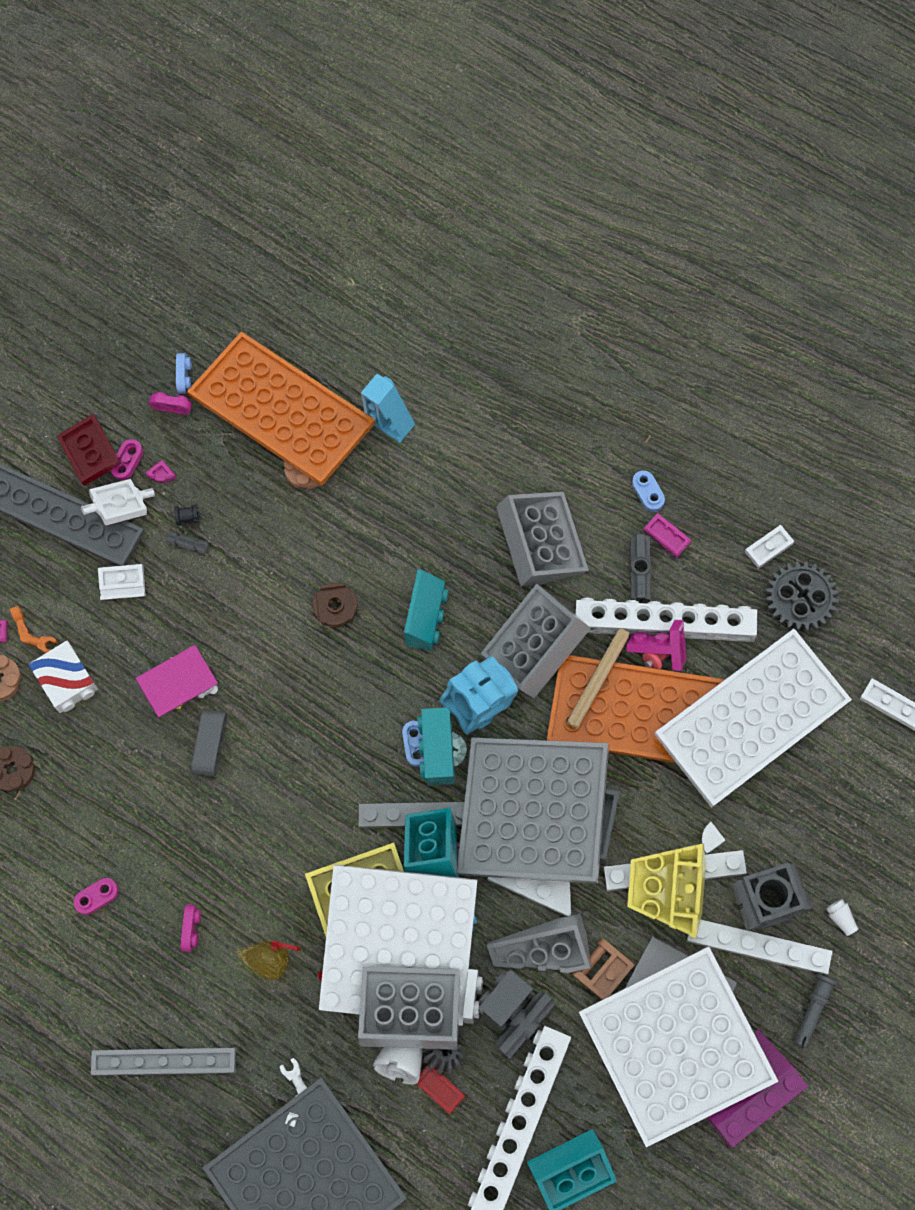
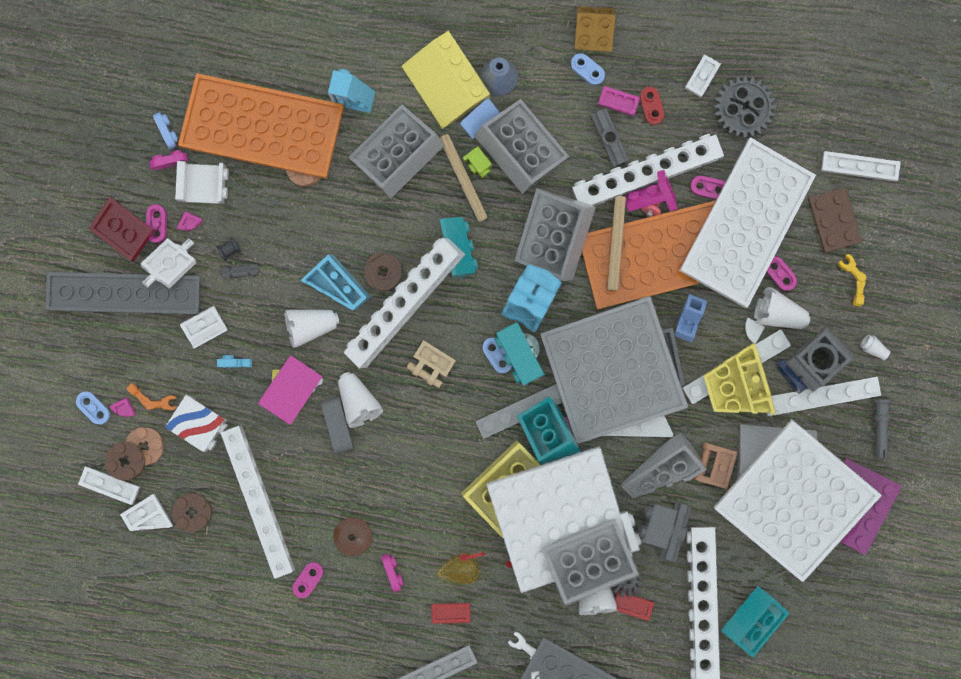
camera: 25 degrees left, 15 degrees up
(85, 787) = (258, 501): none -> white brick
(130, 629) = (229, 362): none -> medium azure plate
(174, 879) = (359, 529): none -> reddish brown dish
(191, 439) = (201, 183): none -> white panel
(231, 624) = (309, 324): none -> white cone
(232, 1003) = (450, 613): none -> red tile
(242, 727) = (357, 401): none -> white cone
(281, 593) = (336, 282): none -> medium azure wedge
(346, 718) = (433, 358): none -> tan plate
(351, 641) = (451, 256): none -> white brick
(408, 490) = (396, 151): none -> light grey slope
(465, 546) = (463, 178): none -> tan axle
(487, 535) = (478, 162): none -> lime brick
(493, 441) = (445, 80): none -> light yellow slope
(514, 486) = (478, 117): none -> light blue slope
(551, 458) = (499, 76): none -> sand blue cone
(645, 792) = (690, 318): none -> medium blue brick
(673, 453) = (595, 28): none -> pearl gold bracket
(701, 554) = (651, 105): none -> red plate
(728, 661) = (709, 185): none -> dark pink plate
(731, 907) = (791, 377): none -> dark blue plate
(750, 829) = (780, 311): none -> white cone
(768, 790) = (780, 273): none -> dark pink plate
(853, 758) = (834, 220): none -> reddish brown plate
(857, 831) = (859, 276): none -> yellow piece

